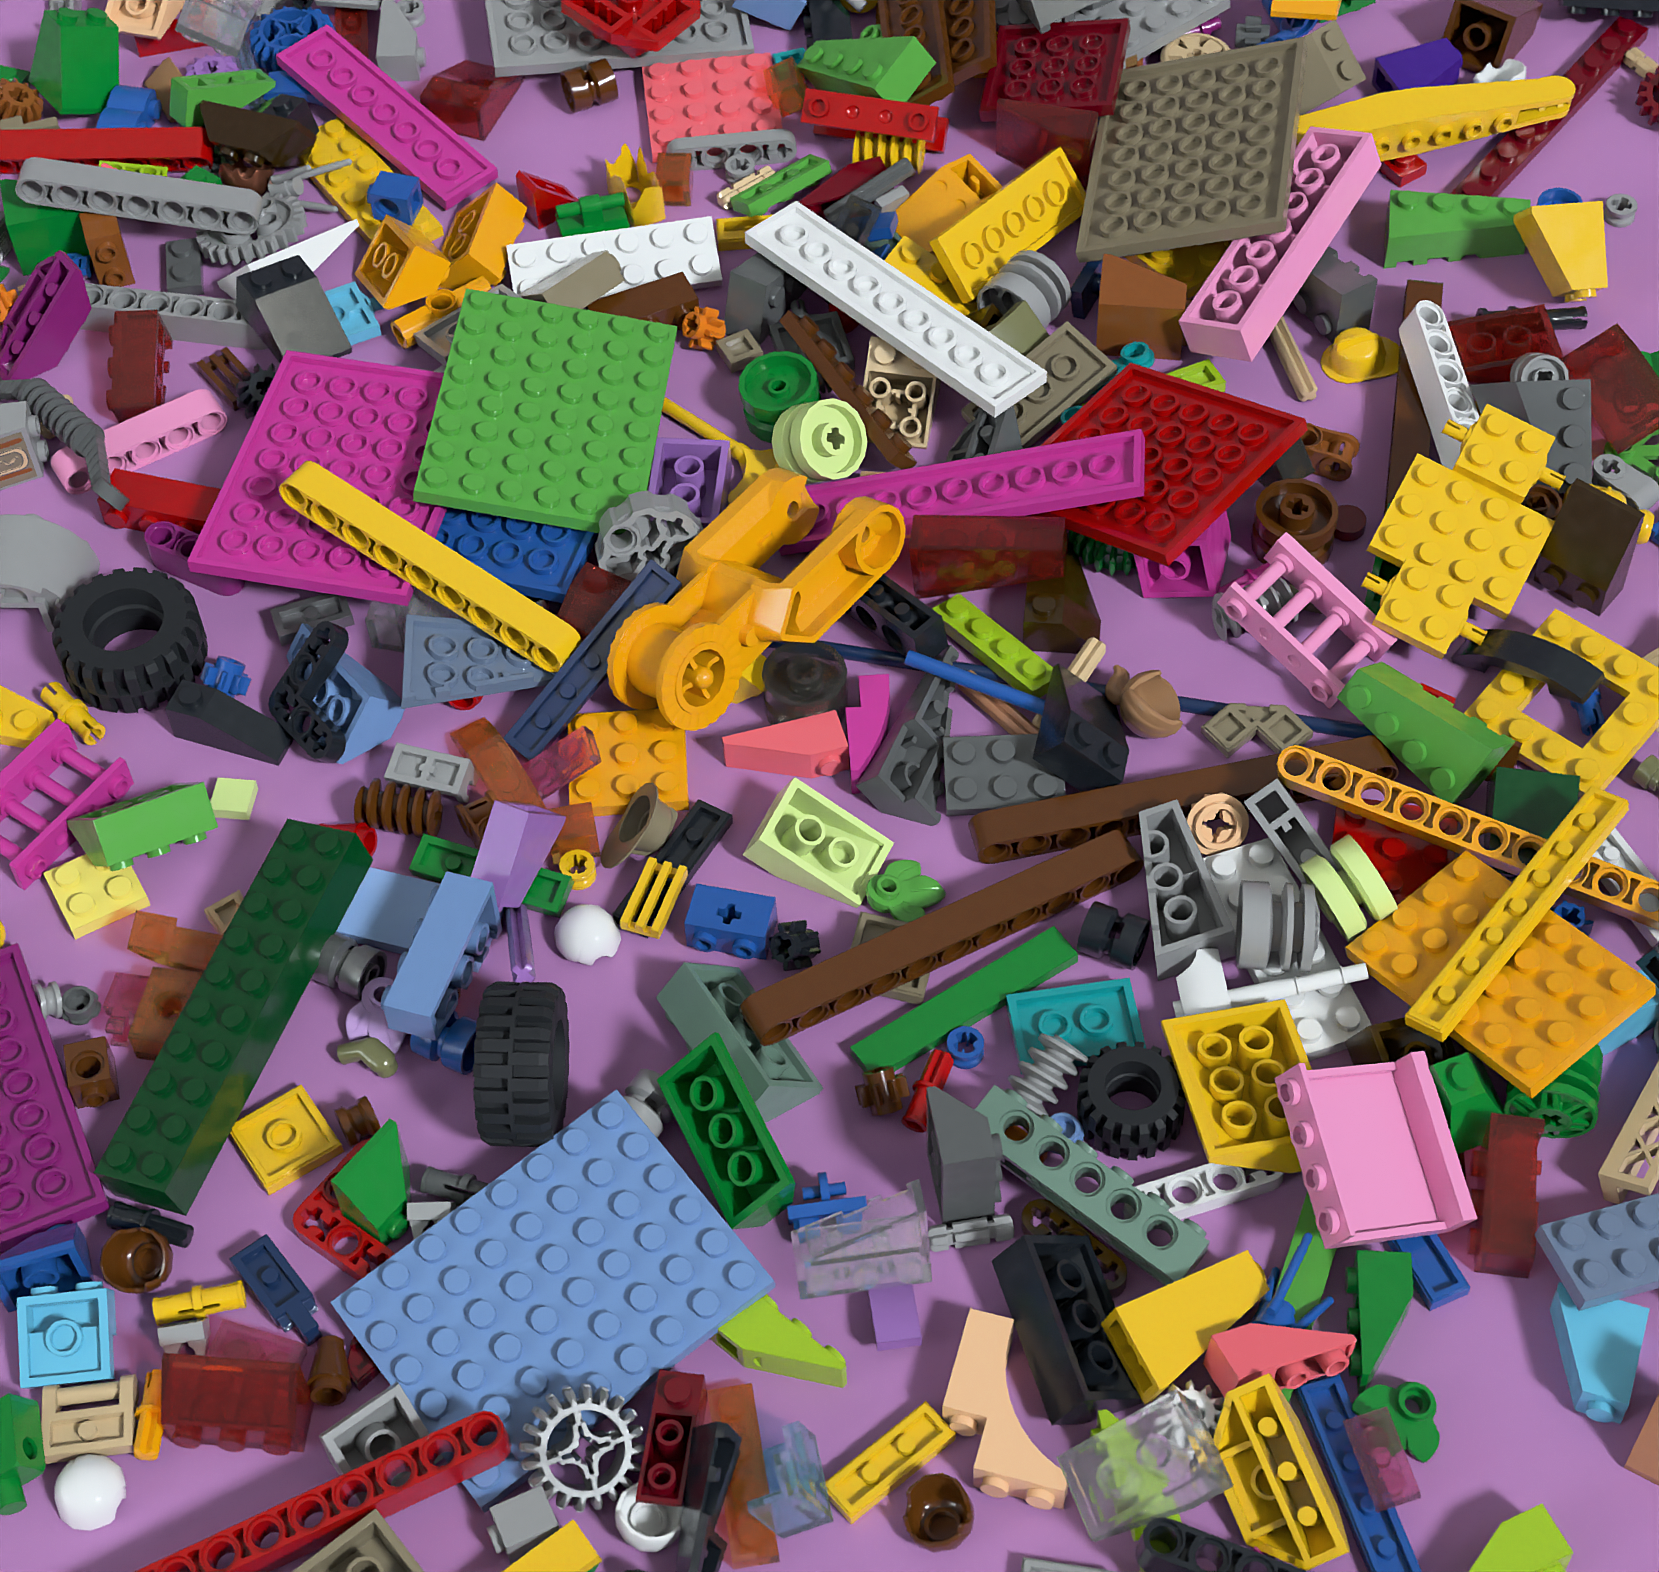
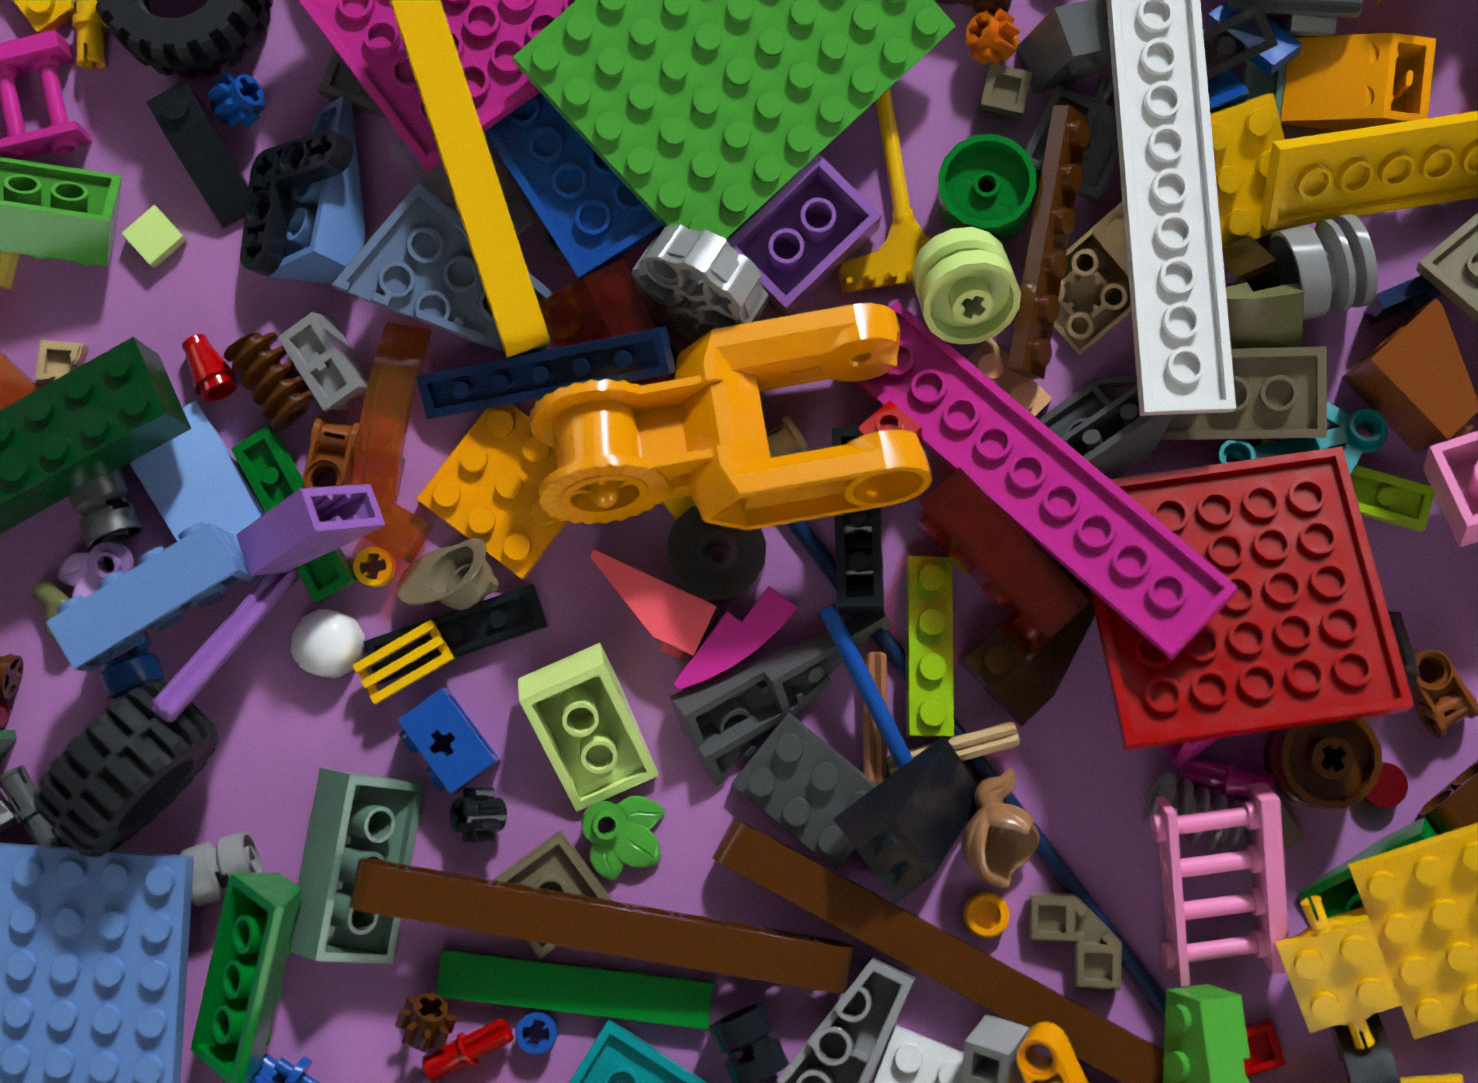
camera: 40 degrees right, 30 degrees up
(563, 762) = (443, 449): clear pink plate -> none
(1186, 758) = (985, 914): none -> light orange tile
(1226, 837) = (951, 1020): light nougat gear -> none

